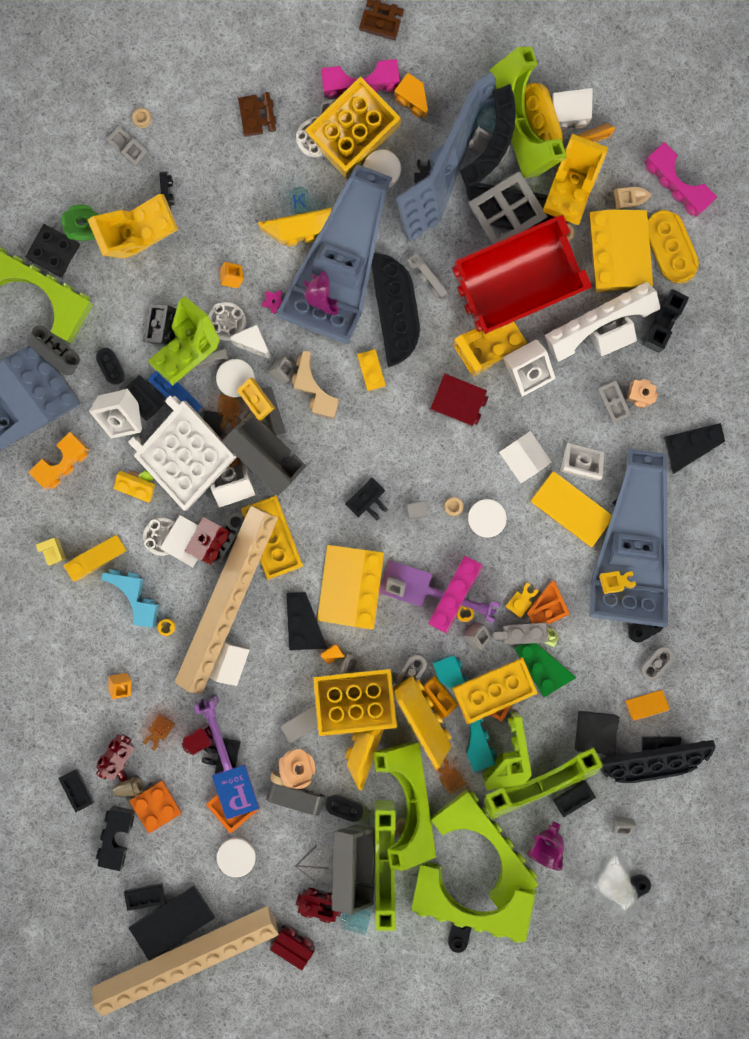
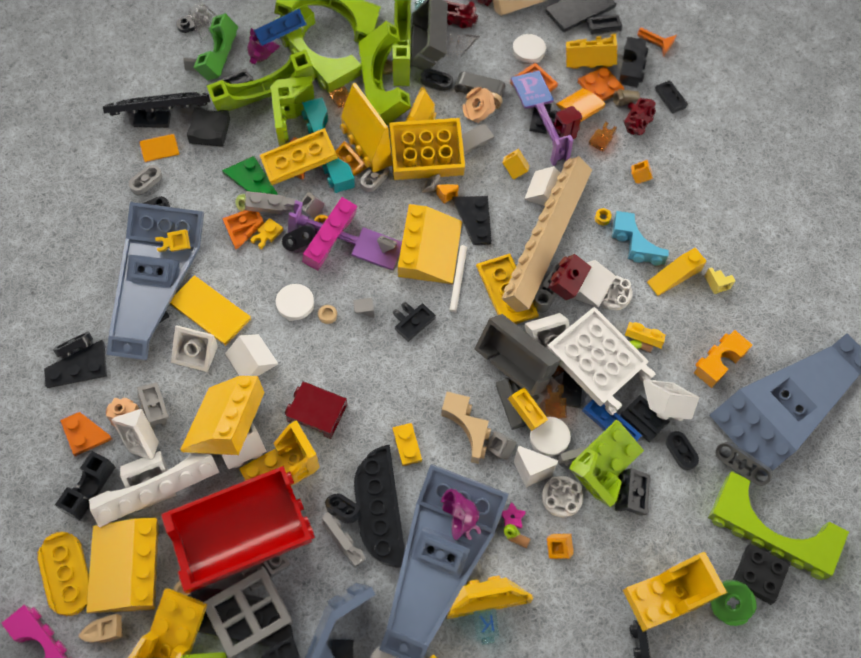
camera: 175 degrees right, 25 degrees down
(84, 875) = (665, 43): none -> orange piece
(162, 847) = (592, 53): none -> yellow wedge
(181, 776) = (583, 101): none -> light orange slope
(257, 692) = (516, 164): none -> yellow panel
(274, 284) = (513, 535): none -> arm
(321, 550) = (458, 279): none -> white bar
(428, 302) = (346, 509): none -> black plate
(490, 590) = (298, 237): none -> black plate
(528, 868) = (279, 27): none -> blue plate
(545, 384) = (225, 417): none -> yellow slope
(593, 865) = (223, 32): none -> bright green arch
(623, 369) = (137, 433): none -> white slope
(677, 376) = (83, 433): none -> orange wing
(701, 466) = (66, 348): none -> black plate

